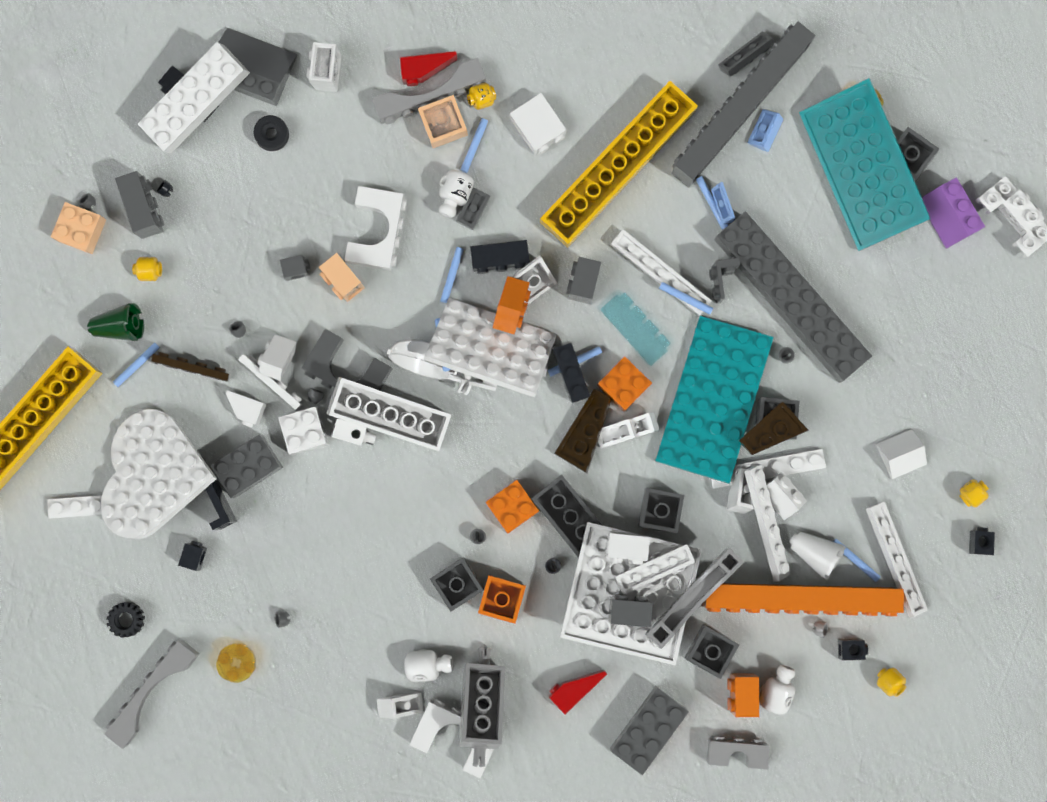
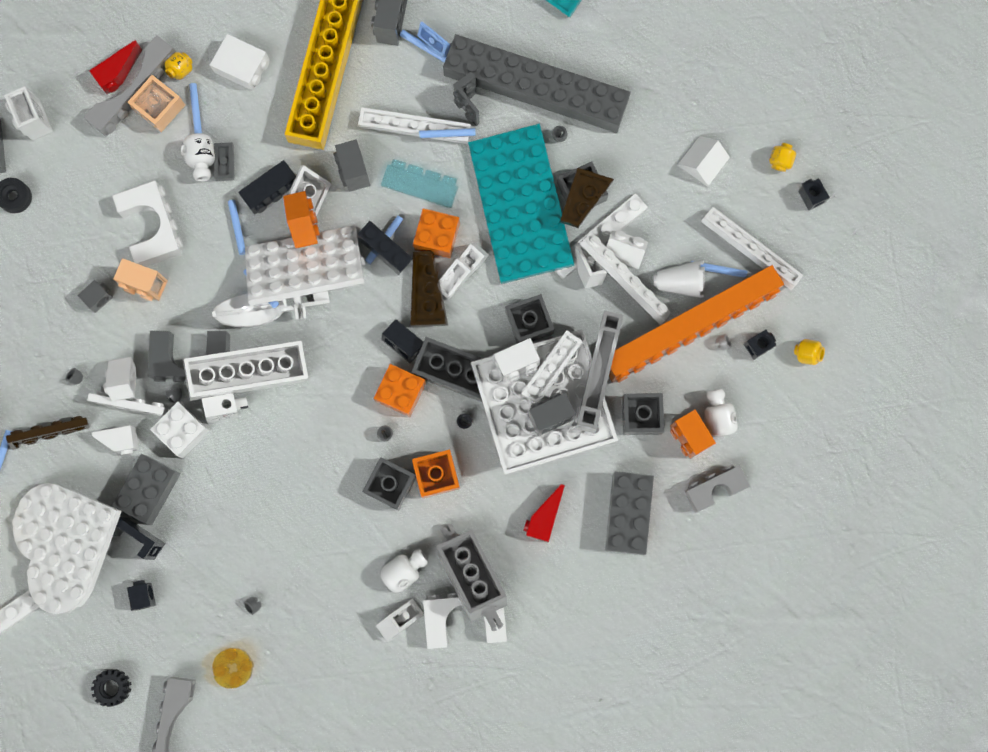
camera: 30 degrees left, 5 degrees down
(539, 463) = (402, 340): none -> black hinge

